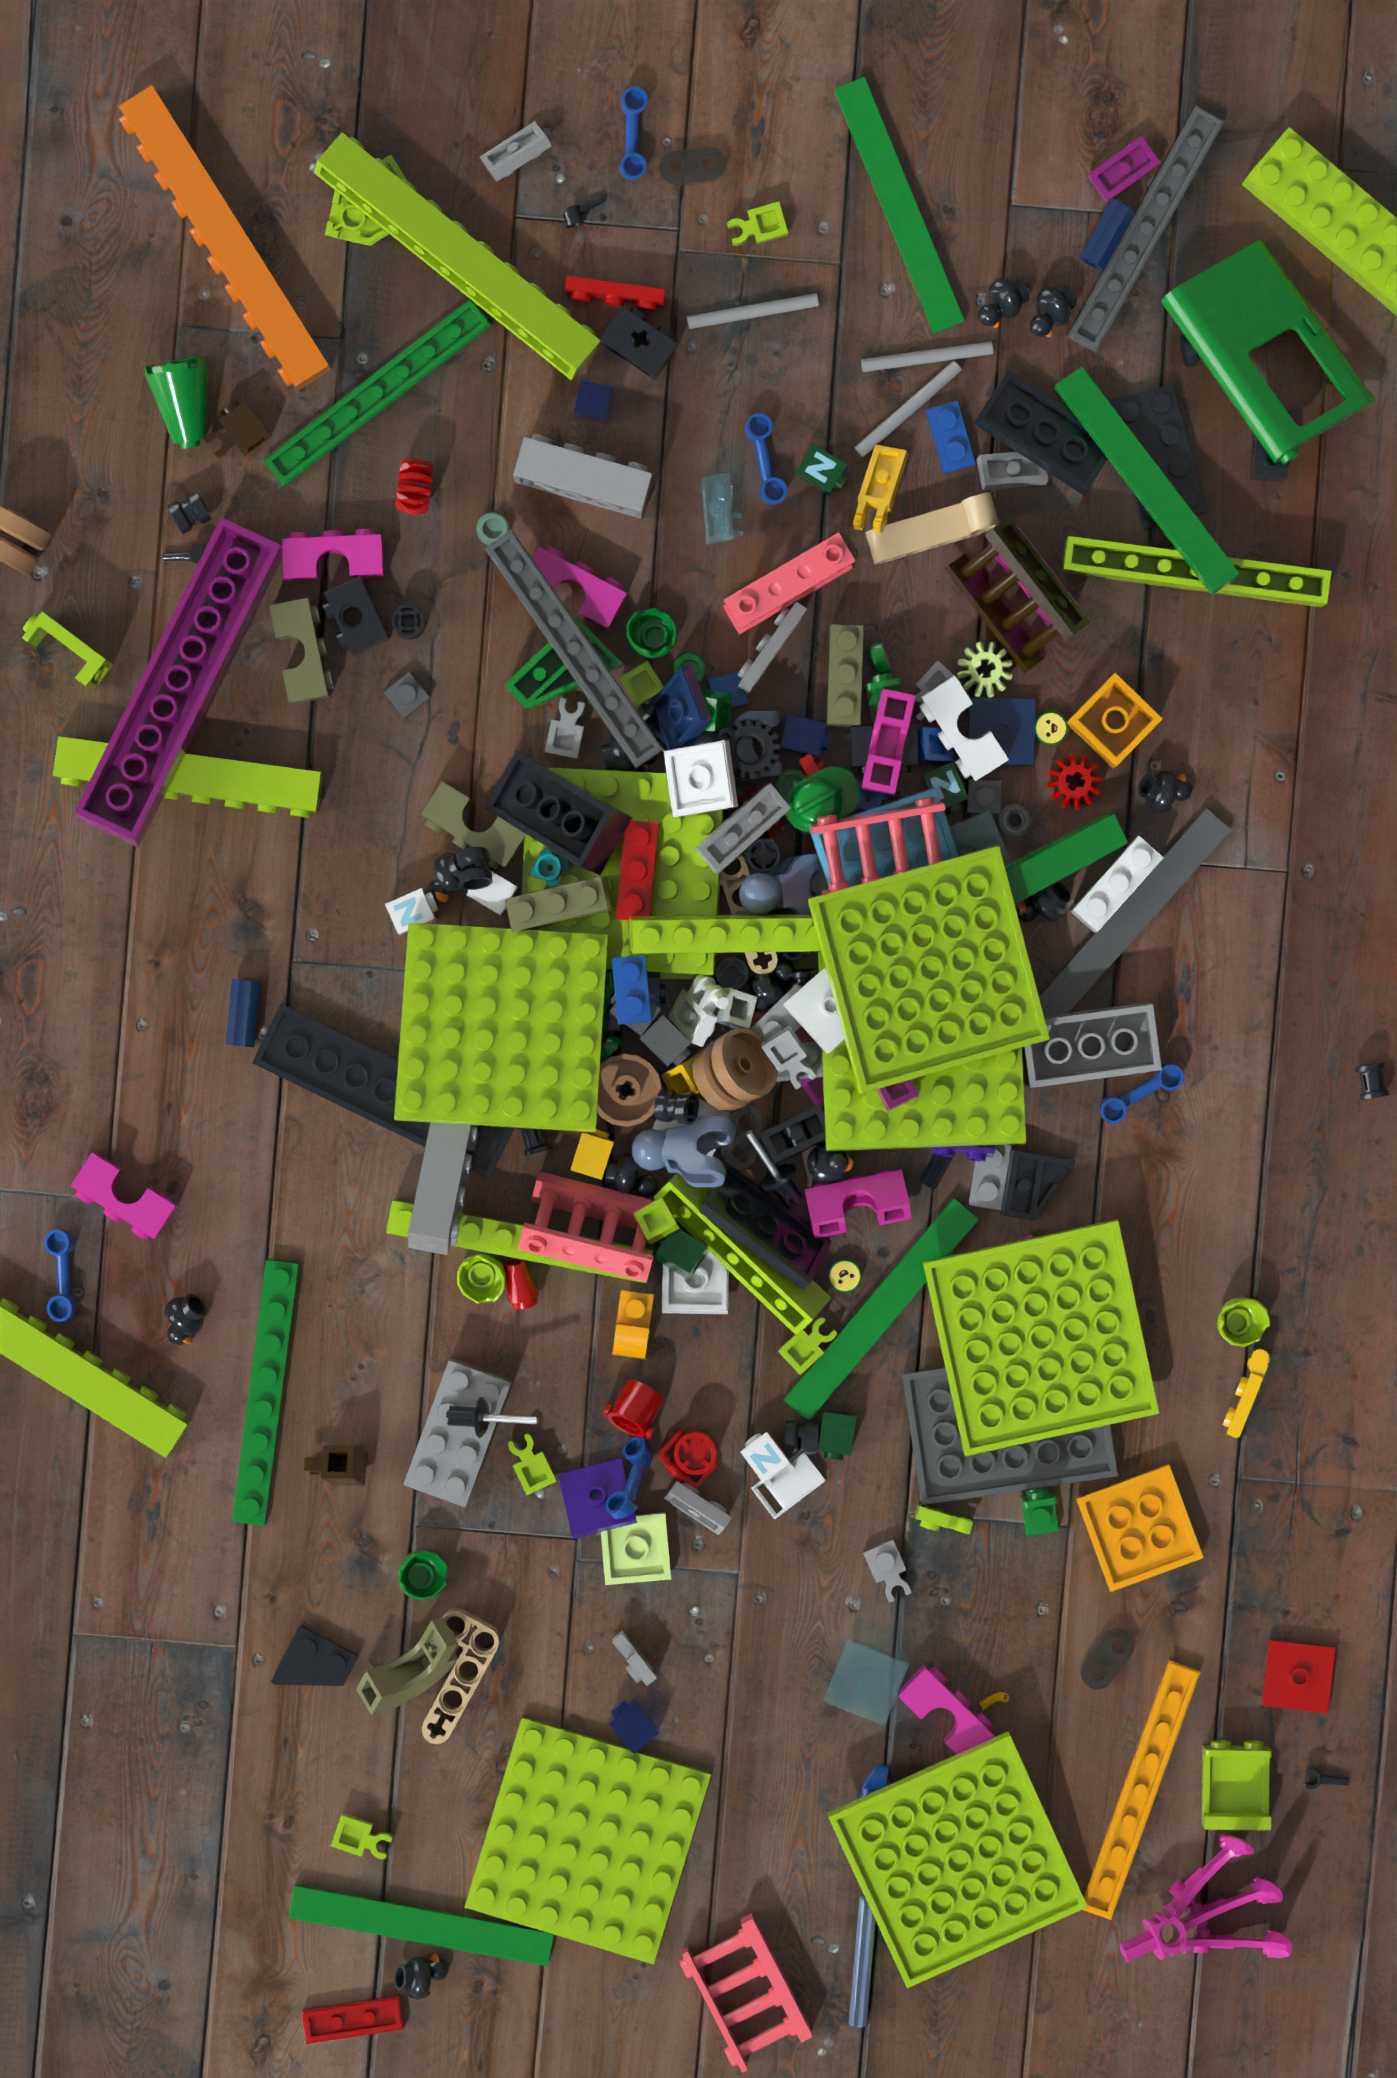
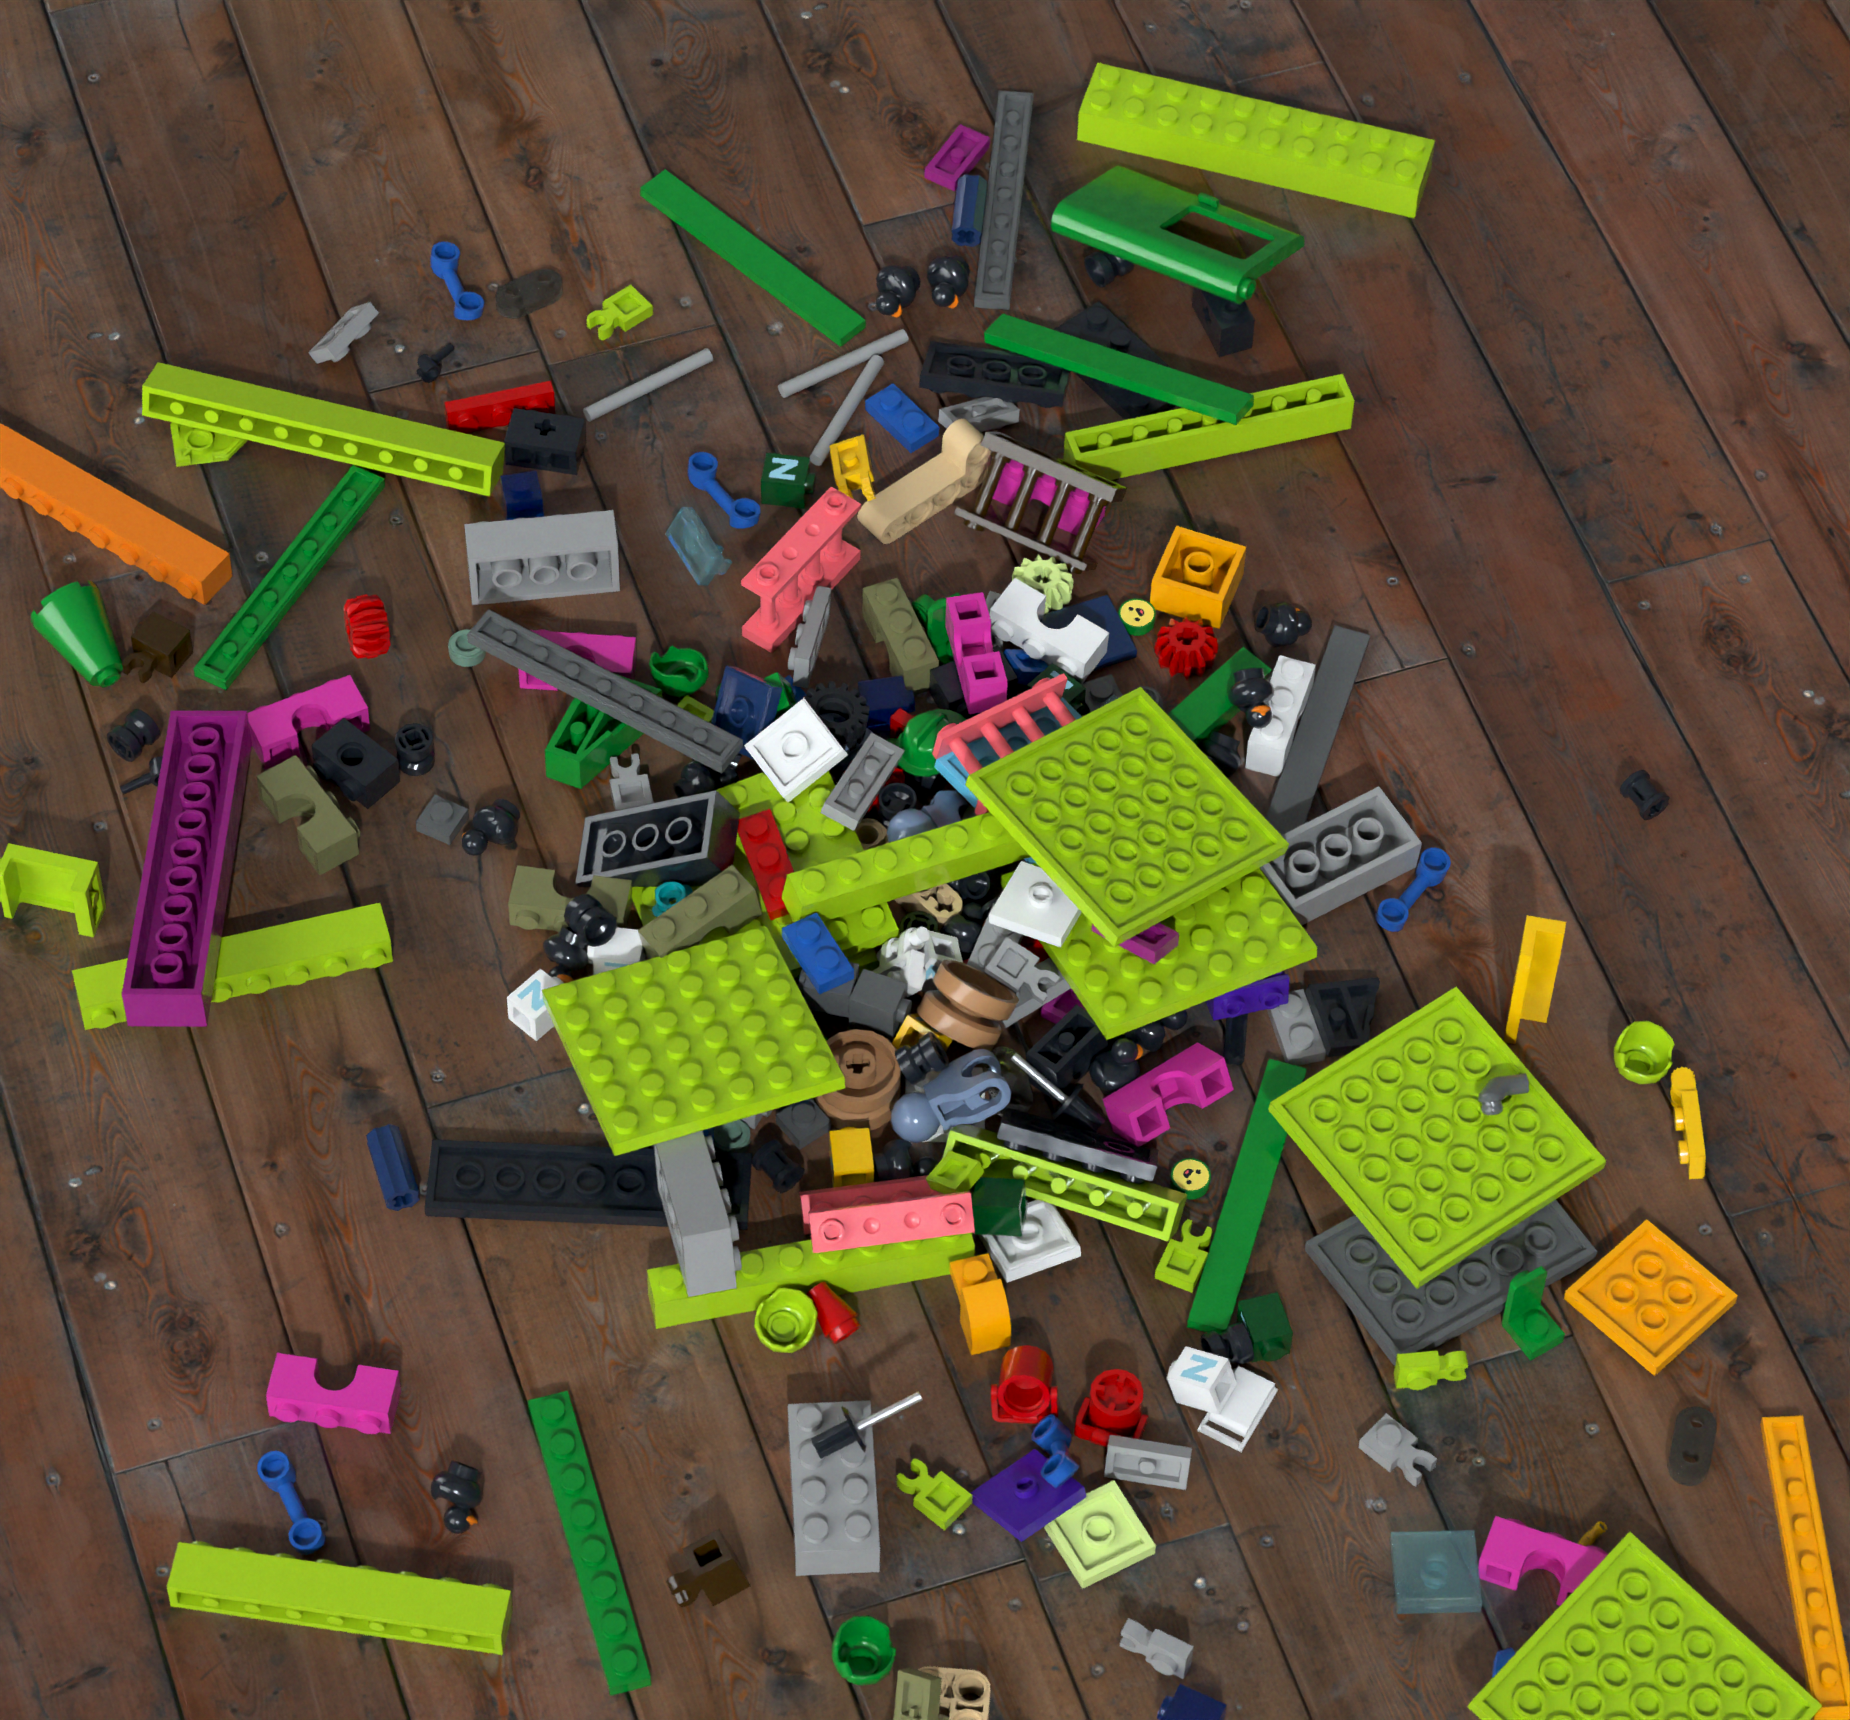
camera: 25 degrees left, 35 degrees down
(444, 720) = (493, 824): none -> black animal
(1093, 874) = (1251, 694): none -> black animal
(1101, 1328) = (1498, 1089): none -> dark grey arm
(1171, 1239) = (1535, 973): none -> yellow fence

